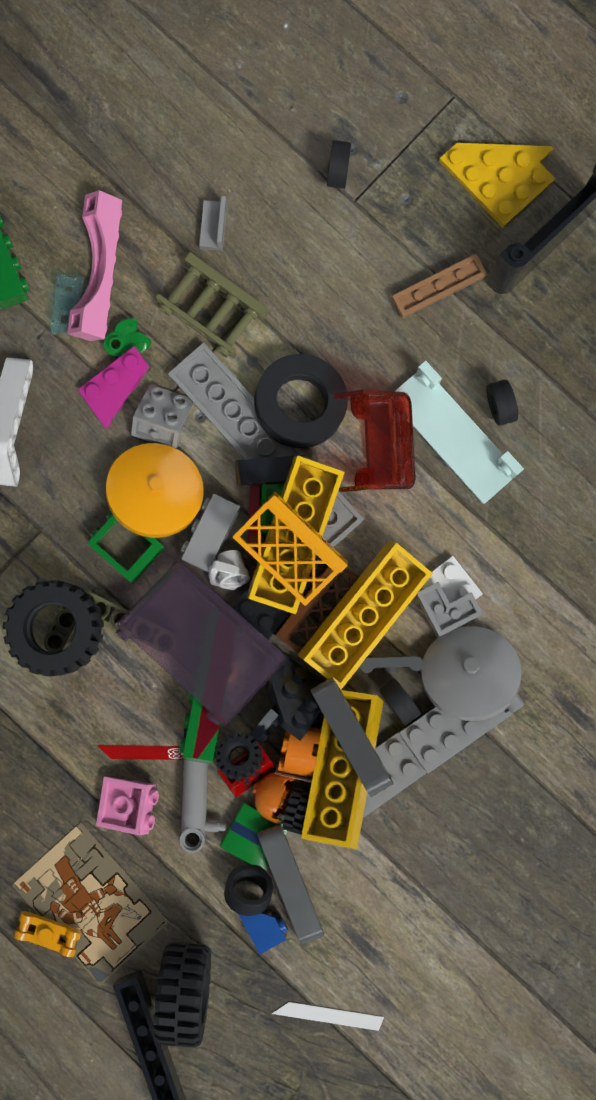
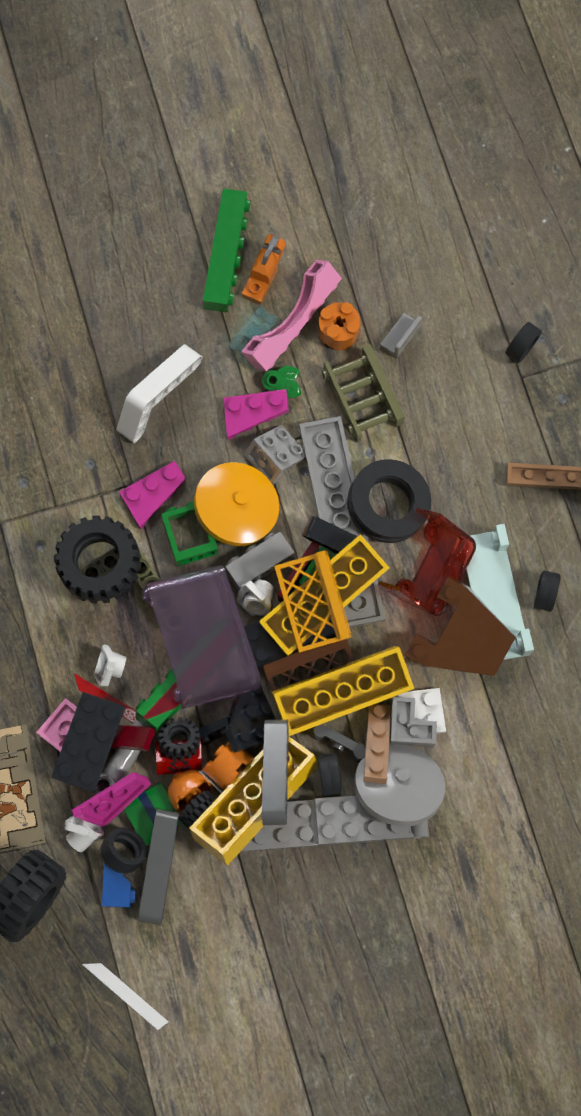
camera: 30 degrees right, 10 degrees down
(39, 234) = (264, 269): none -> orange plate
(64, 525) = (151, 492): none -> dark pink wing
(126, 721) = (108, 665): none -> white piece
(147, 237) = (339, 315): none -> orange brick
(153, 810) = (88, 742): none -> black plate
(186, 782) = (133, 738): none -> dark red tile
(198, 893) = (82, 833): none -> white piece
(210, 851) = (111, 801): none -> dark pink wing
(429, 647) = (377, 744): none -> medium nougat plate
(458, 492) = (472, 638): none -> reddish brown wedge

